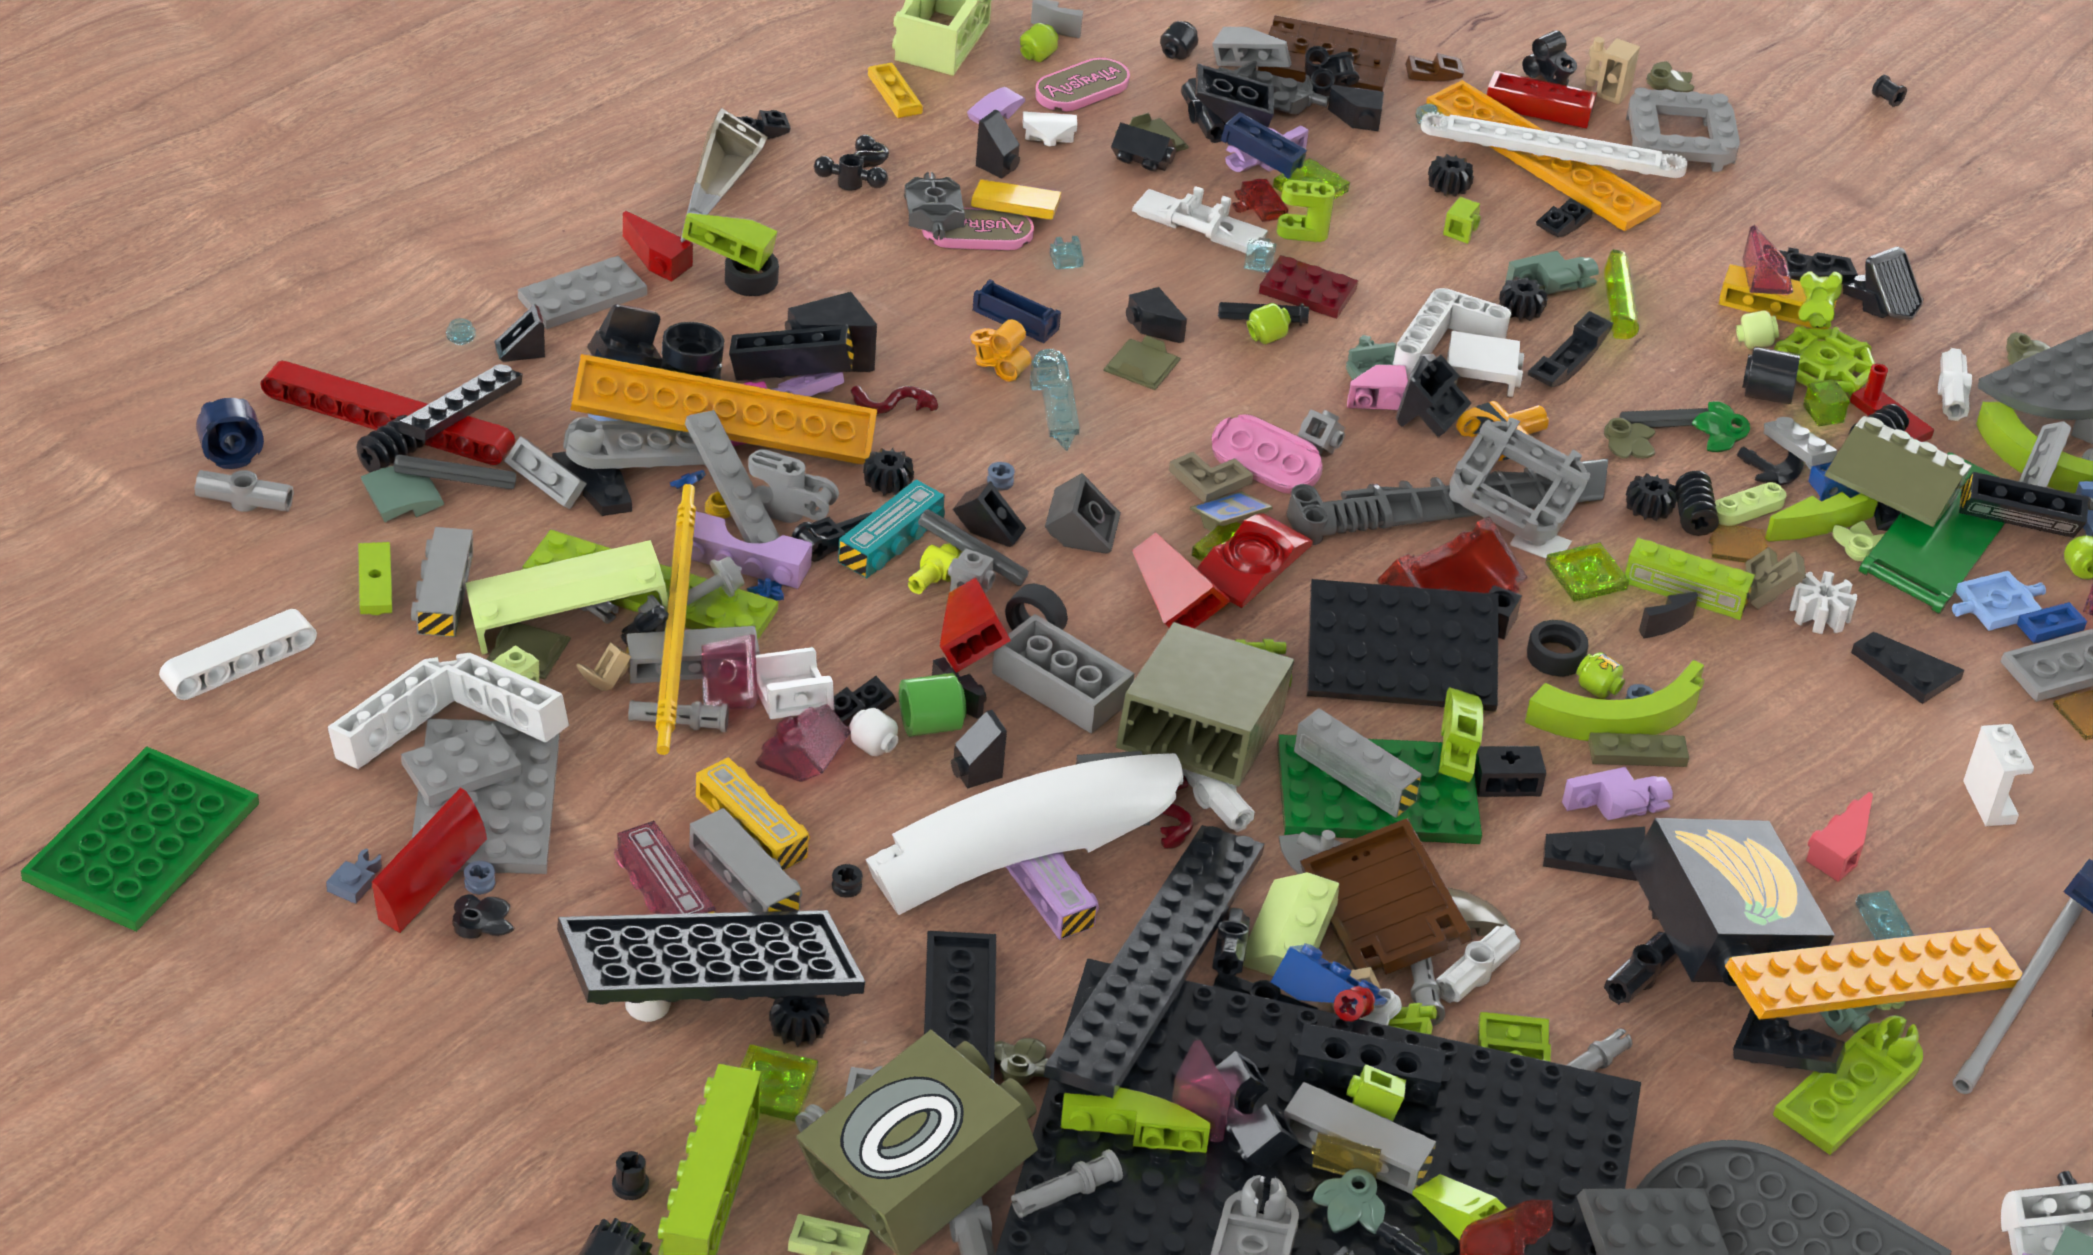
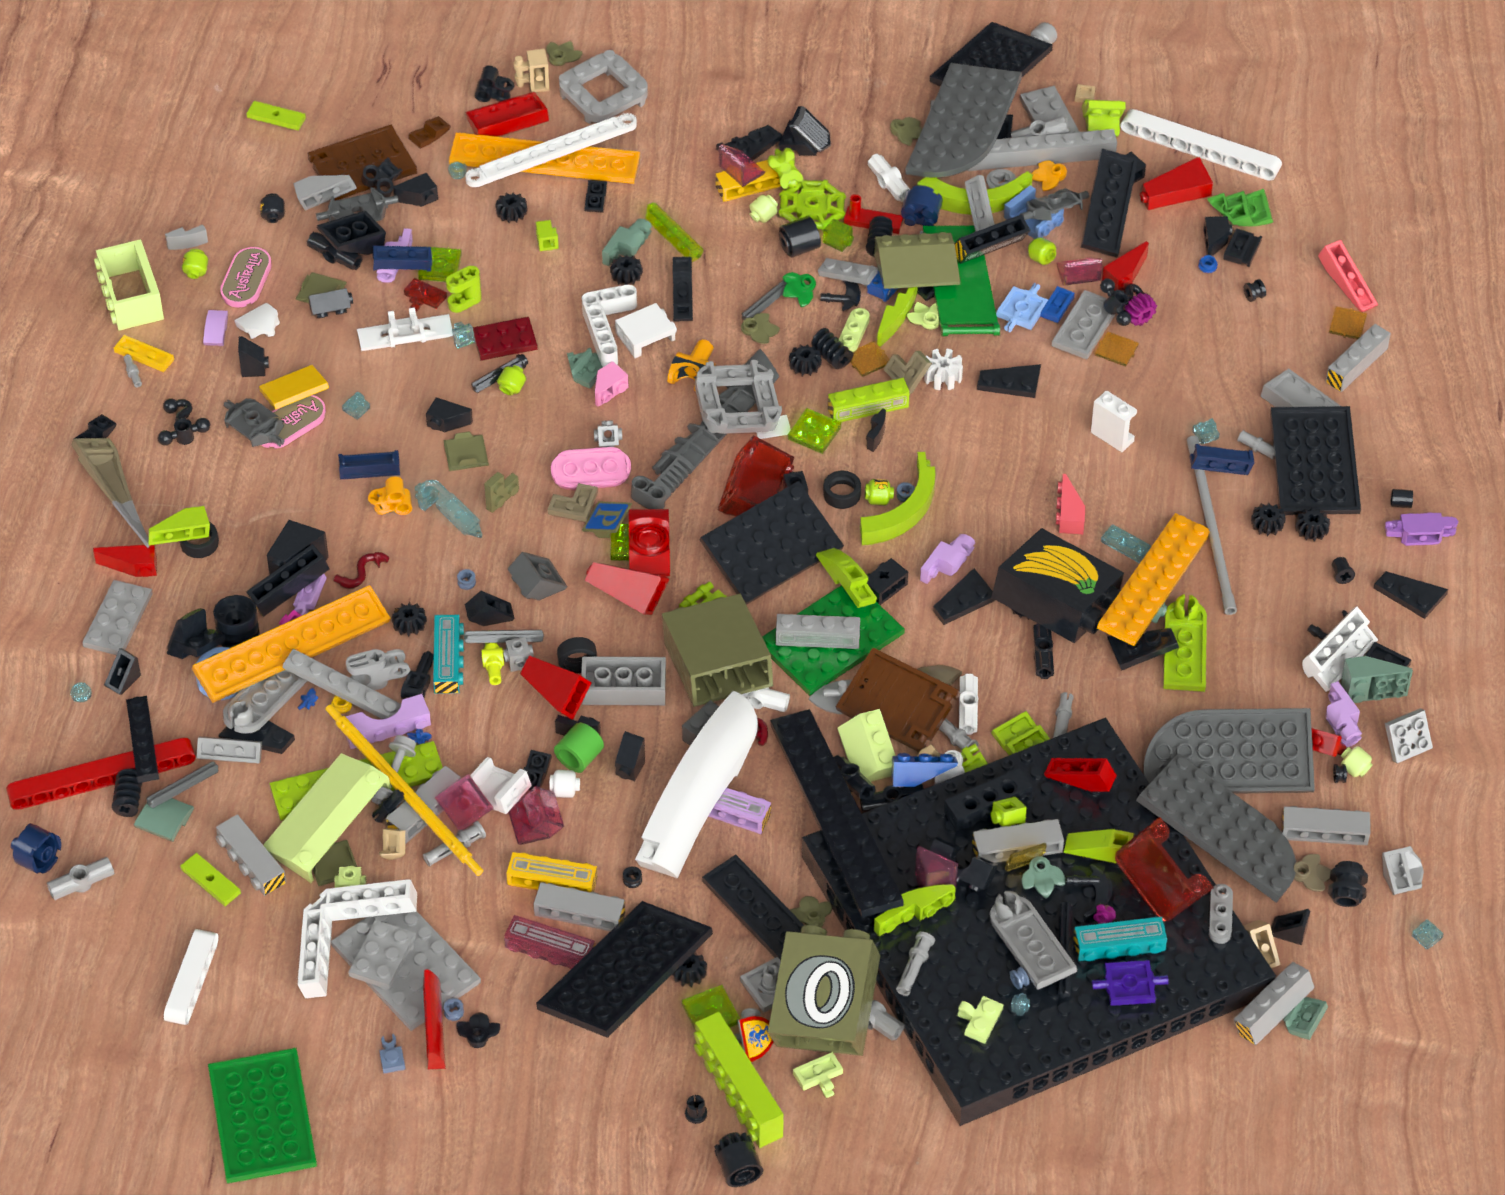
camera: 35 degrees left, 10 degrees up
(778, 1147) = (754, 1036): none -> shield
(863, 96) = (132, 370): none -> light grey bar
(1129, 416) = (500, 490): none -> olive plate
(1346, 998) = (954, 777): red bush -> none
(1432, 395) = (647, 373): black piece -> none
(1535, 1118) = (1084, 773): none -> red slope
(1638, 749) = (930, 523): olive plate -> none
(1964, 426) = (921, 206): none -> dark blue brick

